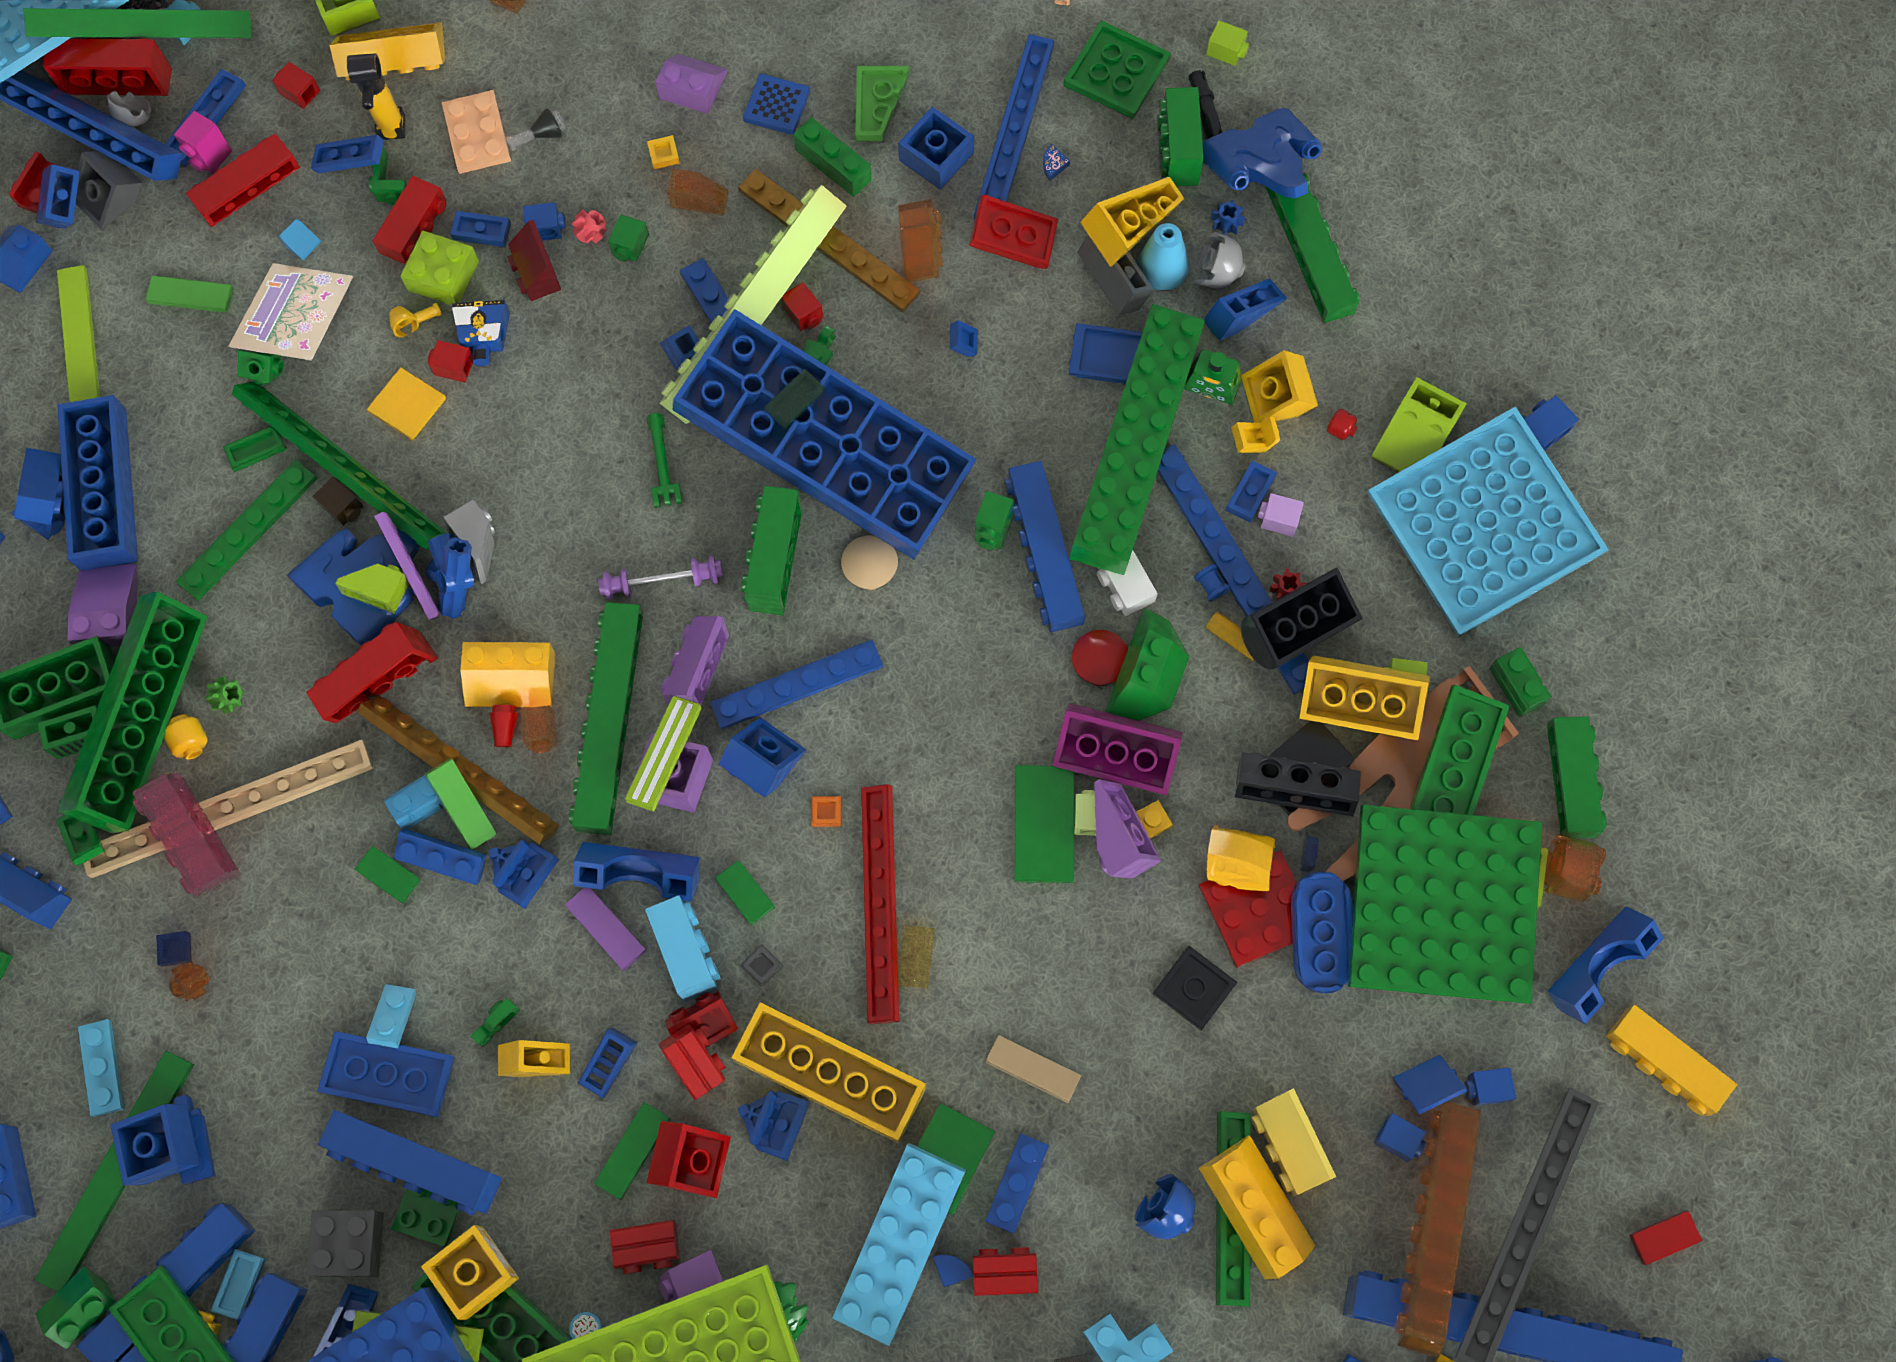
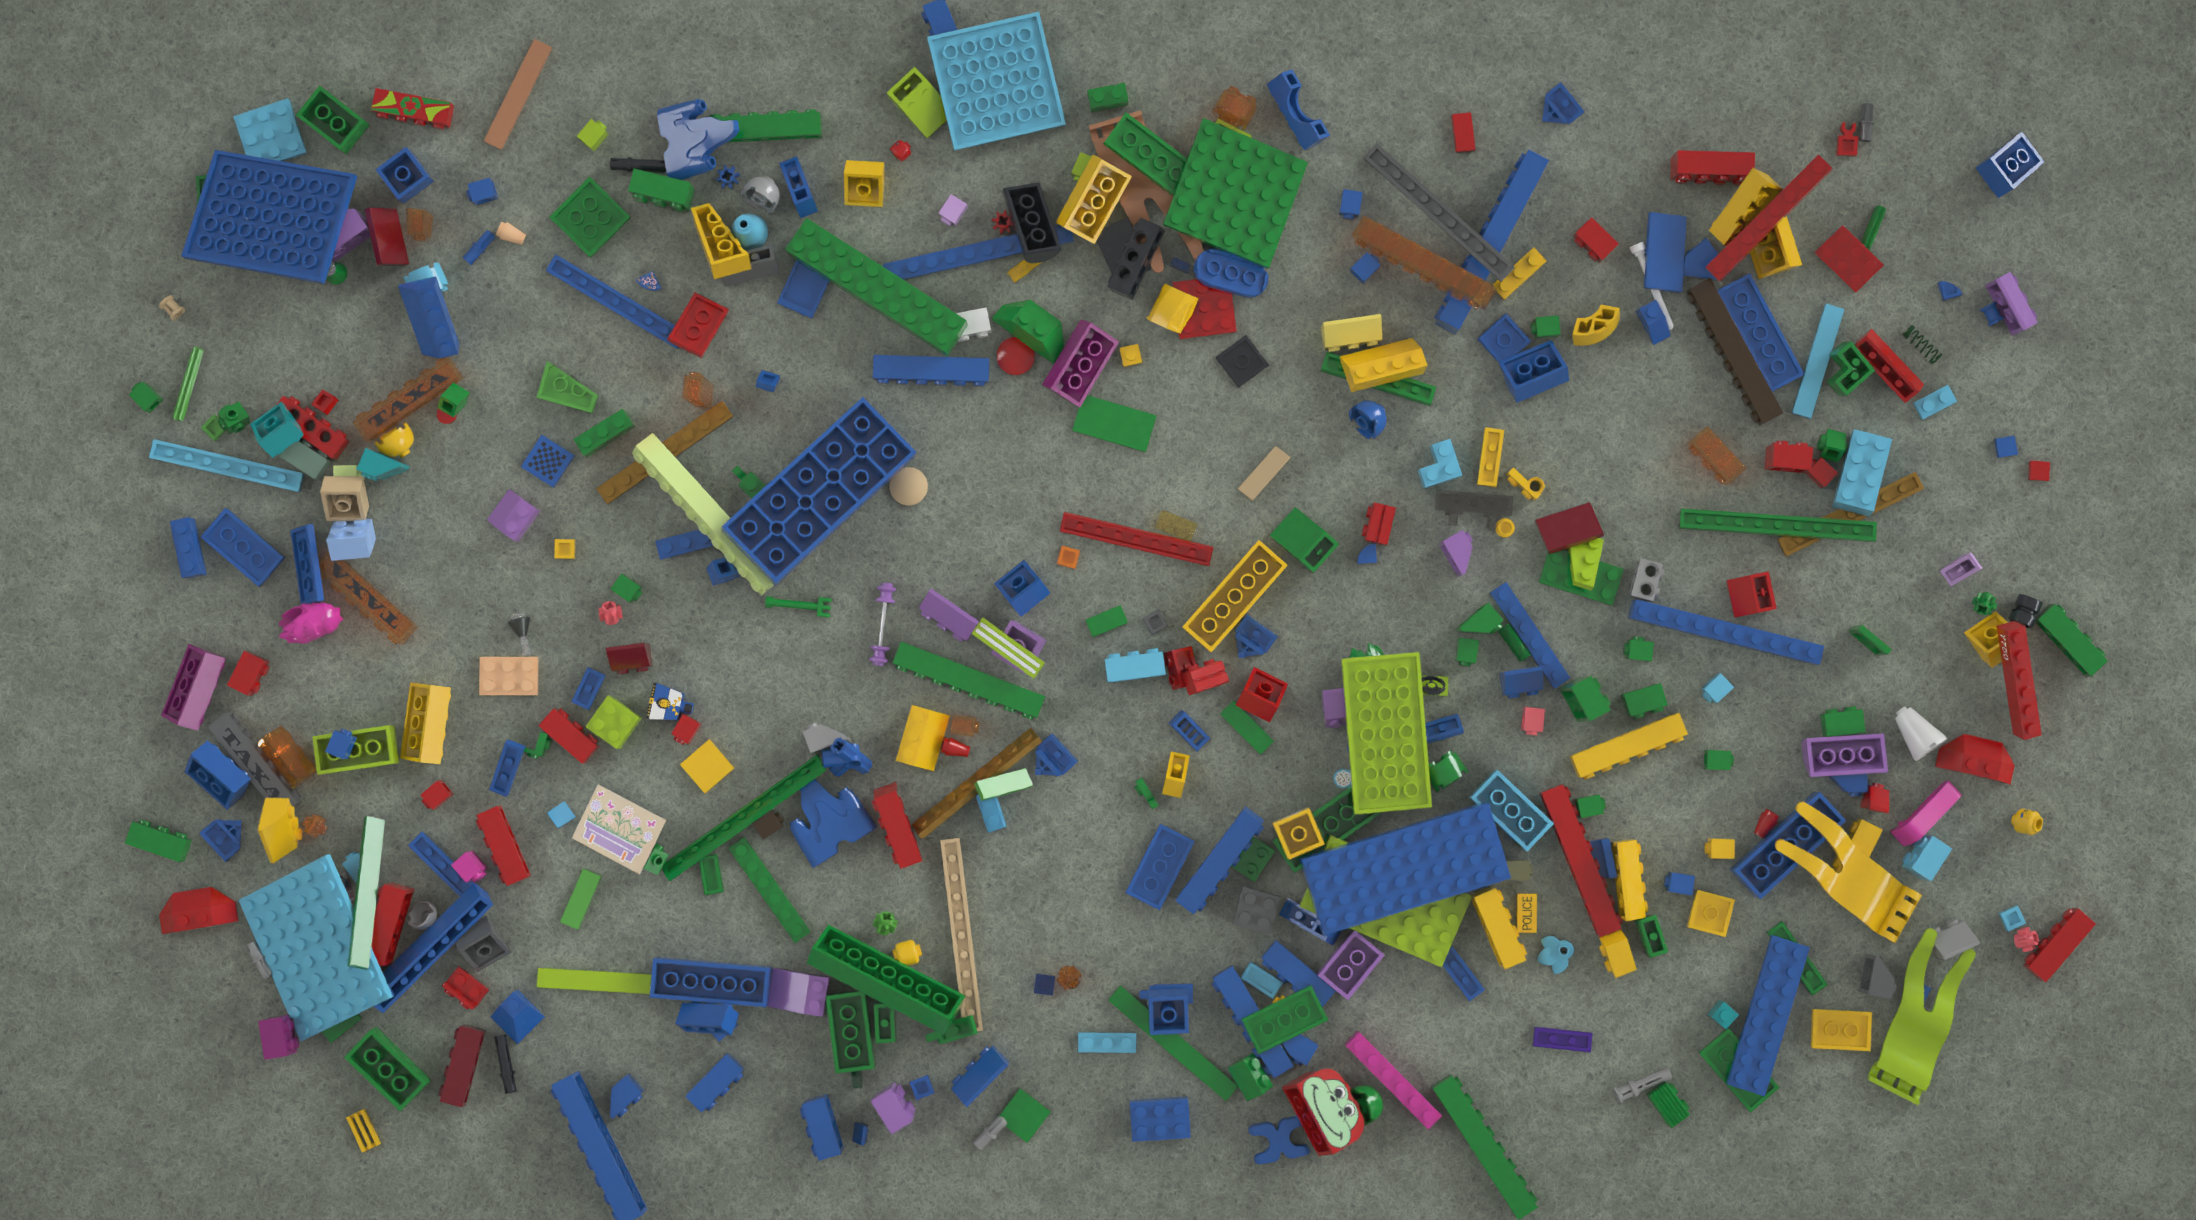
camera: 75 degrees left, 15 degrees up
(57, 196) = (483, 975): blue brick -> none
(185, 833) = (978, 959): clear pink brick -> none
(376, 96) = (479, 734): black piece -> none
(376, 586) = (842, 808): lime slope -> none
(387, 874) = (1032, 842): green tile -> none
(391, 1016) = (1125, 856): medium azure plate -> none
(401, 317) = (642, 756): yellow bar -> none
(407, 565) = (832, 785): medium lavender tile -> none
(439, 856) = (1031, 806): blue plate -> none
(547, 220) = (597, 643): blue brick -> none
(602, 865) = (1082, 664): blue arch -> none
(605, 928) = (1104, 713): medium lavender tile -> none
(645, 1246) = (1305, 732): red brick -> none
(696, 192) = (605, 532): clear orange slope -> none
(772, 550) = (887, 545): green brick -> none
(794, 399) = (795, 503): clear green tile -> none
(796, 684) = (979, 554): blue plate -> none
(802, 307) = (714, 482): red brick -> none
(899, 1244) = (1346, 580): medium azure plate -> none
(936, 147) = (619, 360): blue brick -> none
(993, 521) = (907, 398): green brick -> none
(1017, 1183) = (1328, 502): blue plate -> none
(1085, 813) = (1116, 392): yellowish green brick -> none
(1120, 834) = (1137, 377): medium lavender slope -> none
(1212, 582) = (986, 269): blue bush -> none
(1214, 377) = (845, 223): green torso -> none
(1251, 491) = (930, 224): blue plate -> none
(1256, 436) = (892, 209): yellow bracket -> none
(1429, 1084) = (1339, 239): blue piece -> none
(1576, 777) = (1177, 85): green brick -> none
(1671, 1061) = (1364, 92): yellow brick -> none

